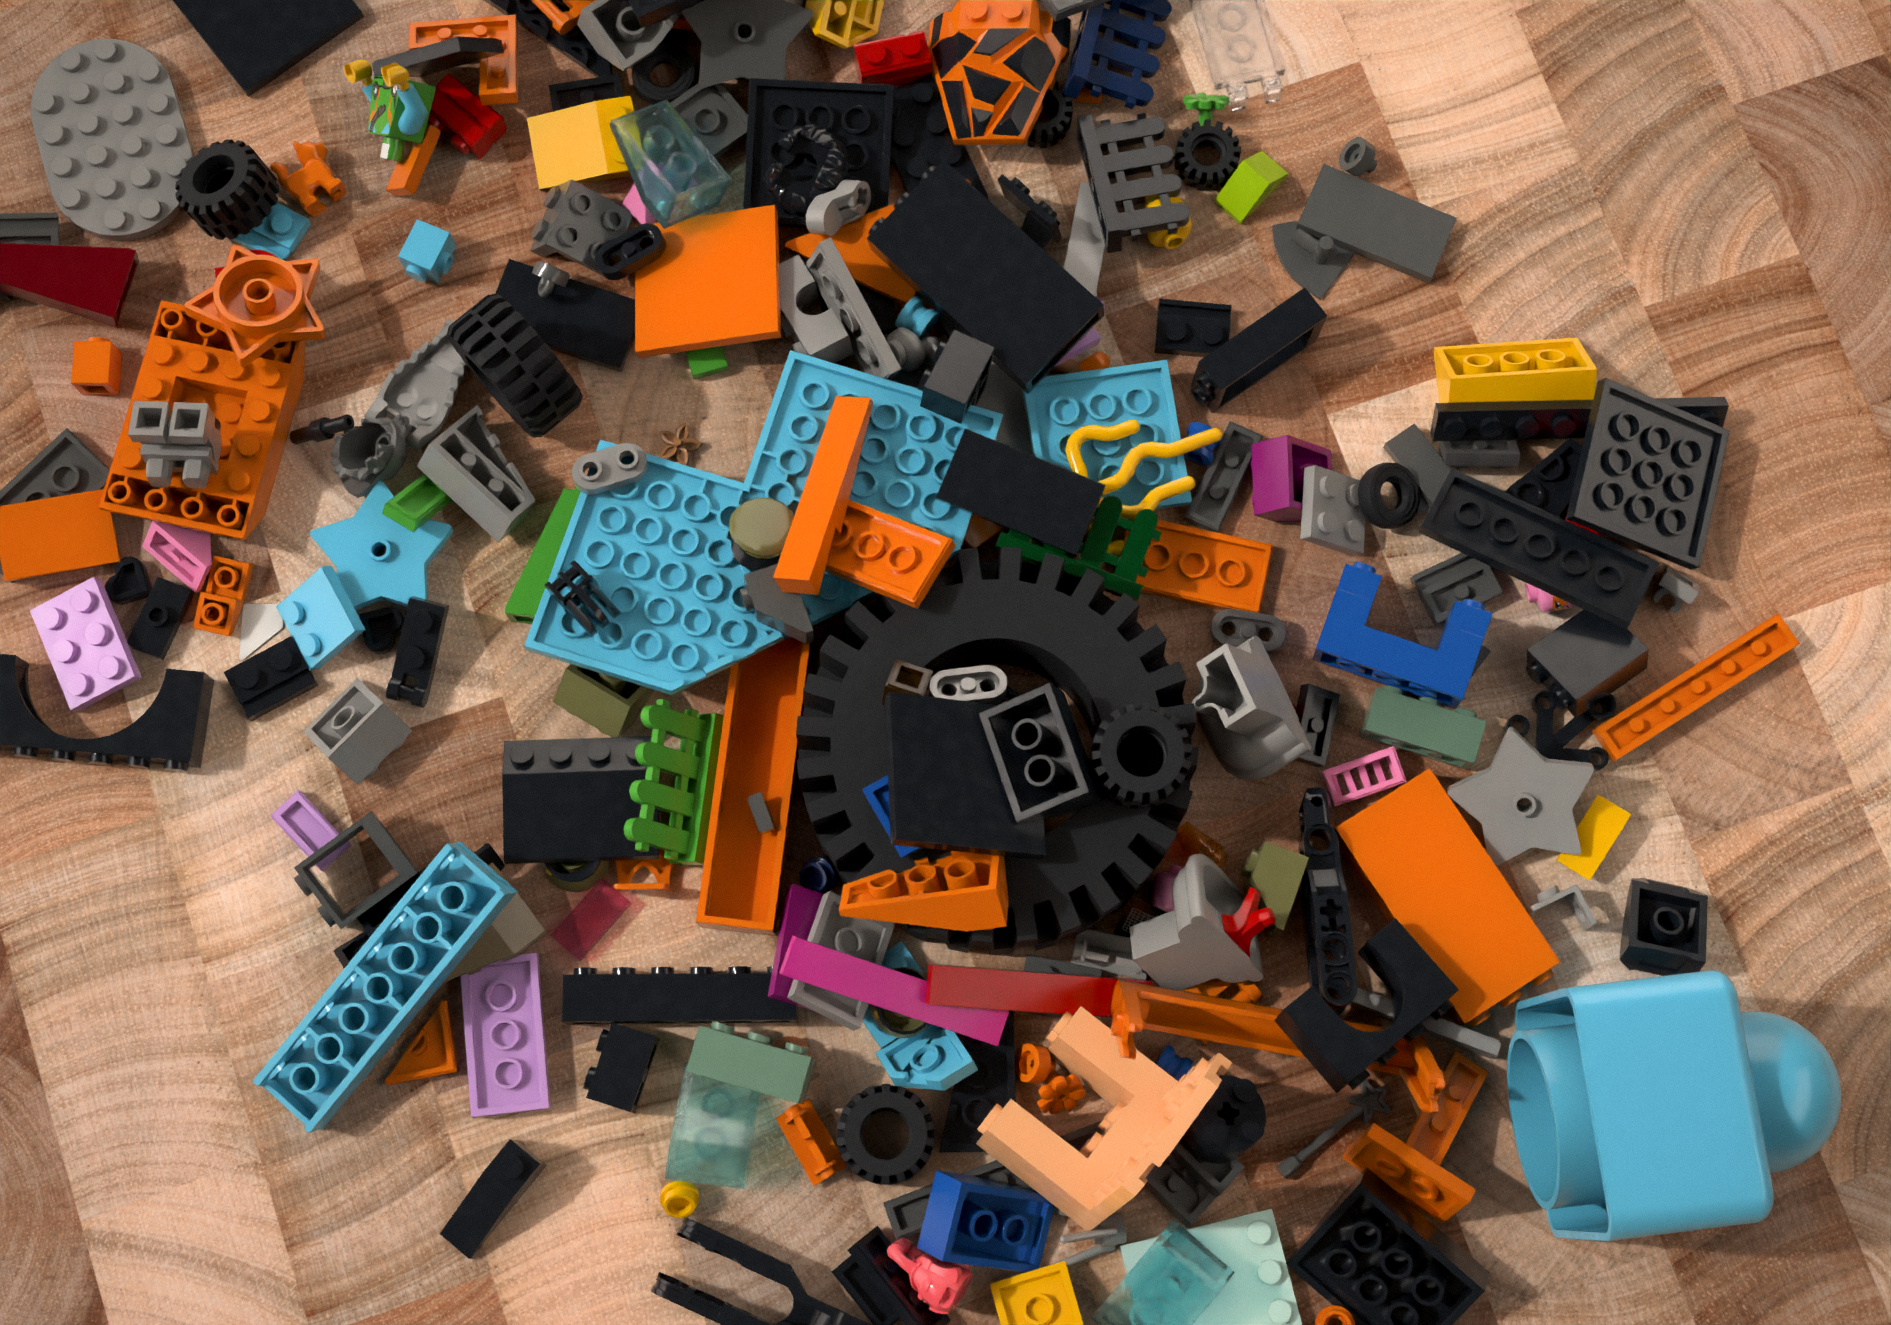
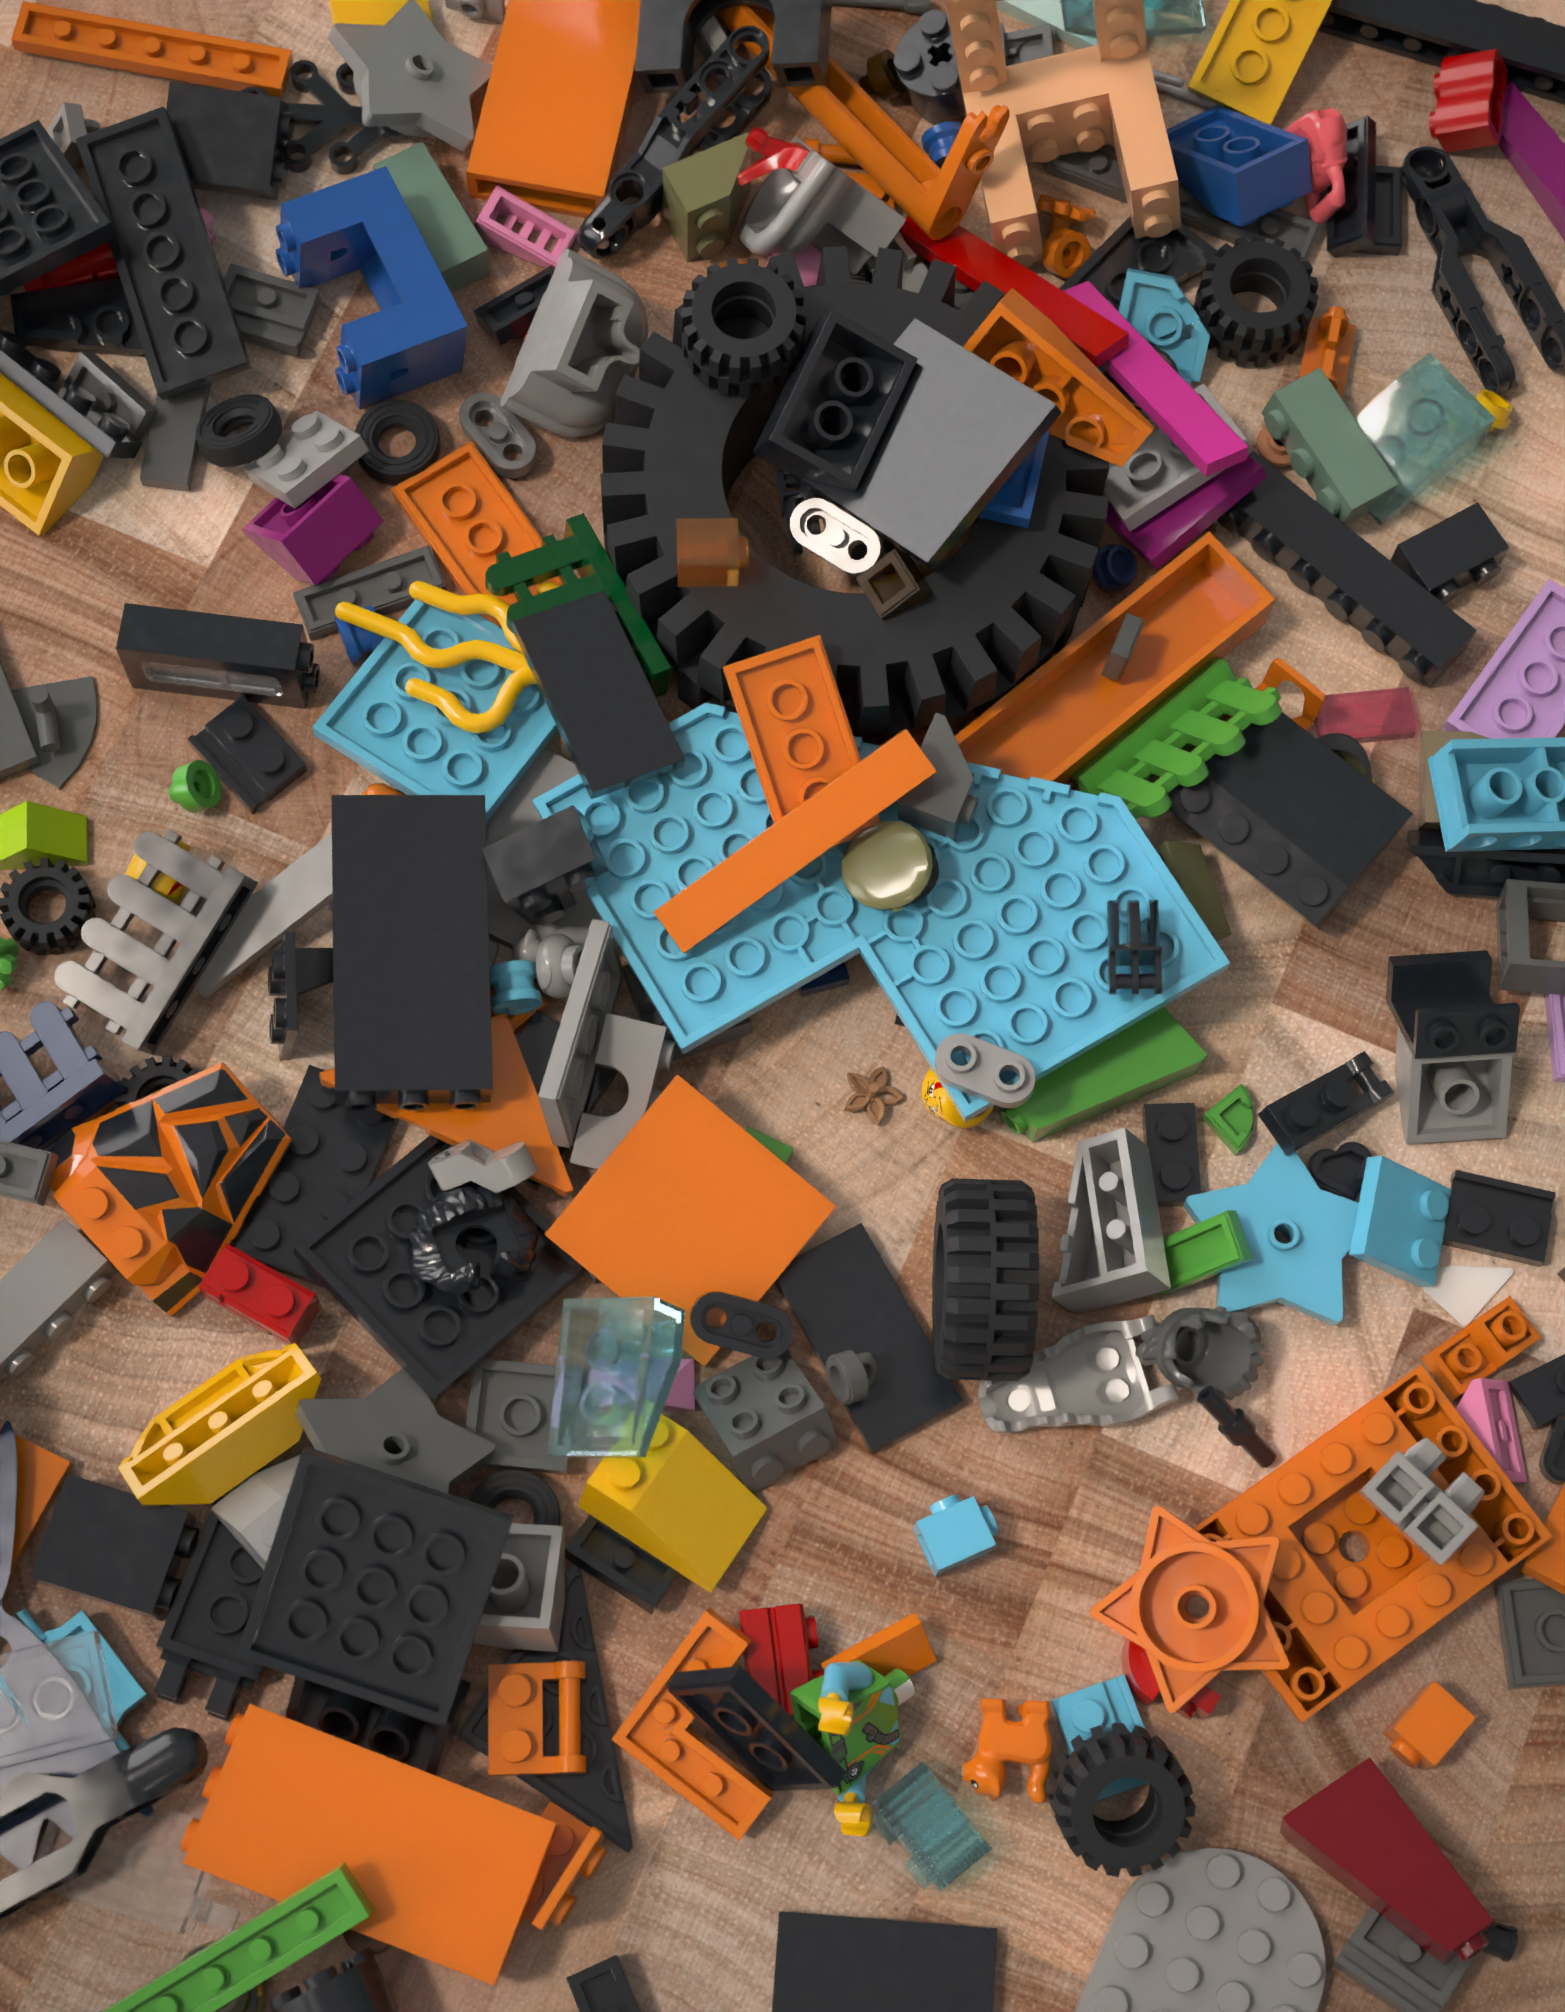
camera: 140 degrees left, 5 degrees down
(318, 105) = (928, 1828): none -> clear light blue brick
(387, 761) = (1447, 1005): none -> black panel
(467, 605) = (1232, 1119): none -> bright green tile
(484, 555) = (1173, 1150): none -> black plate
(1026, 602) = (709, 552): none -> clear orange brick
(1197, 282) = (195, 786): none -> bright green tile
(1263, 1080) = (882, 76): none -> dark brown tile
(1306, 555) = (398, 415): none -> black tyre

